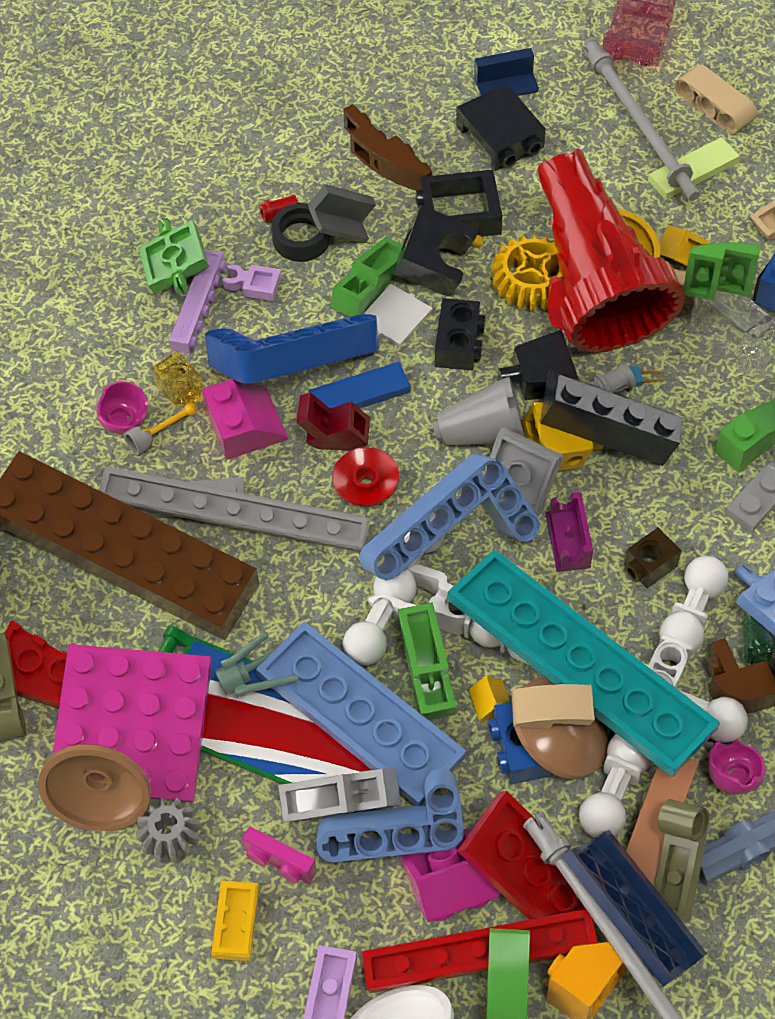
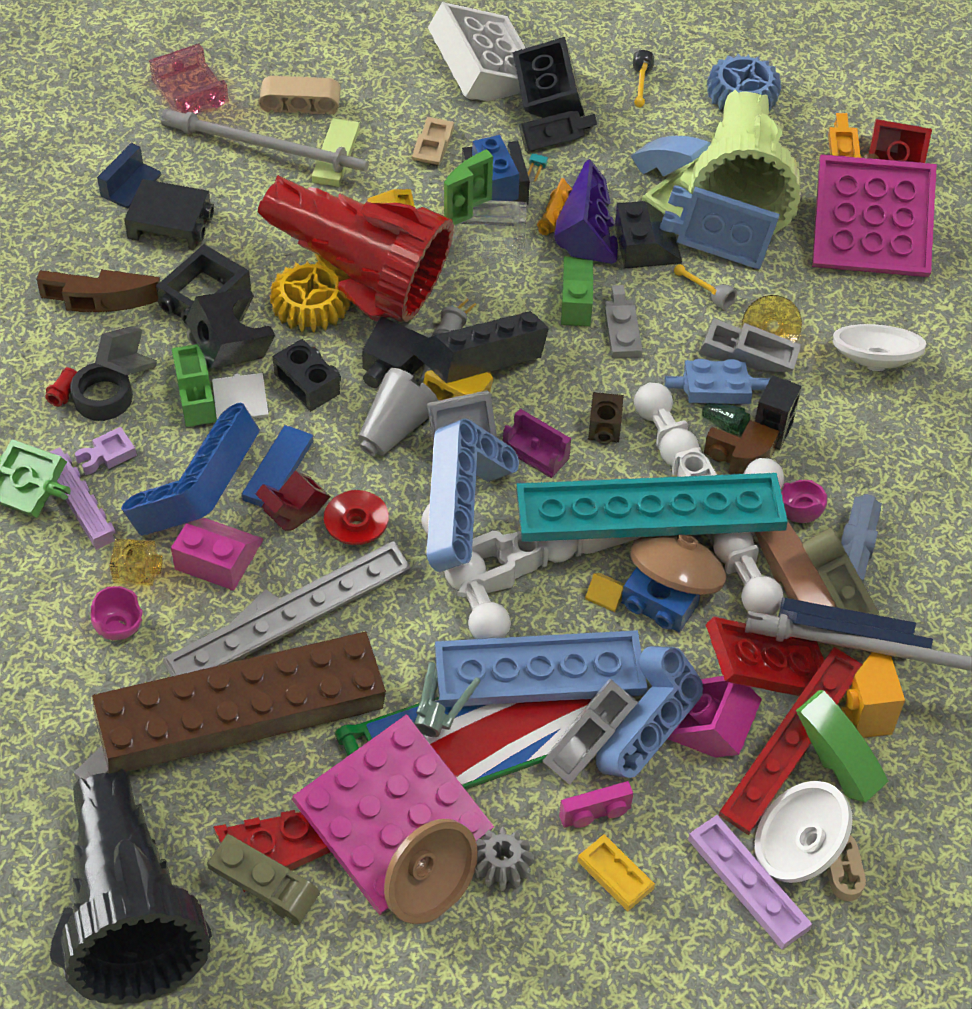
camera: 50 degrees left, 5 degrees down
(140, 438) = (155, 620): hinge -> none
(427, 661) = (547, 596): bright green slope -> none
(552, 704) = (674, 544): tan slope -> none

